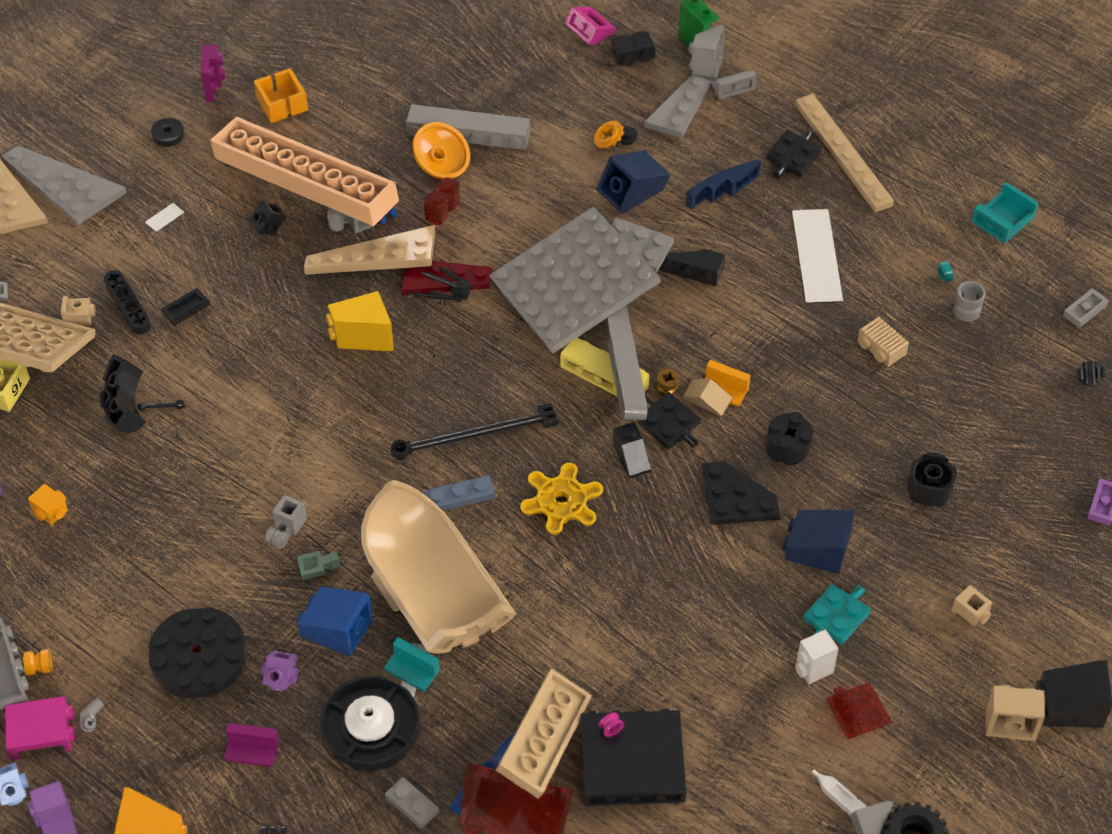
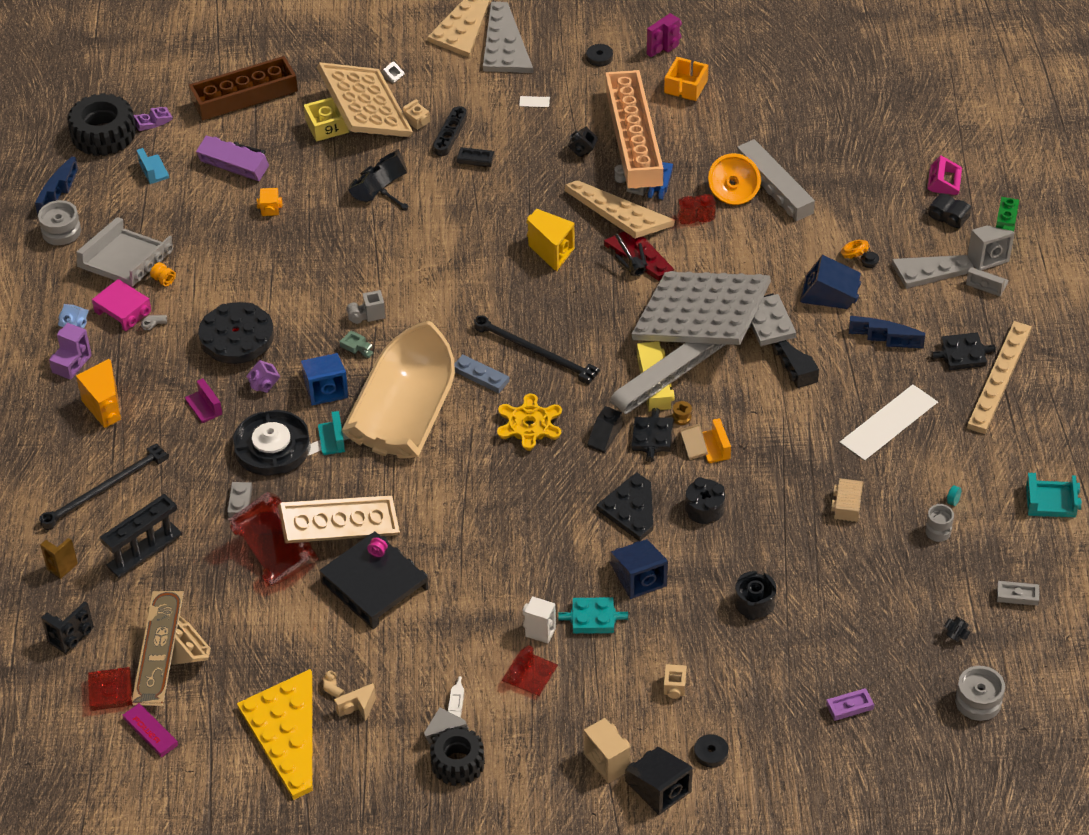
camera: 50 degrees right, 5 degrees down
(1064, 645) = (711, 742): none -> black piece

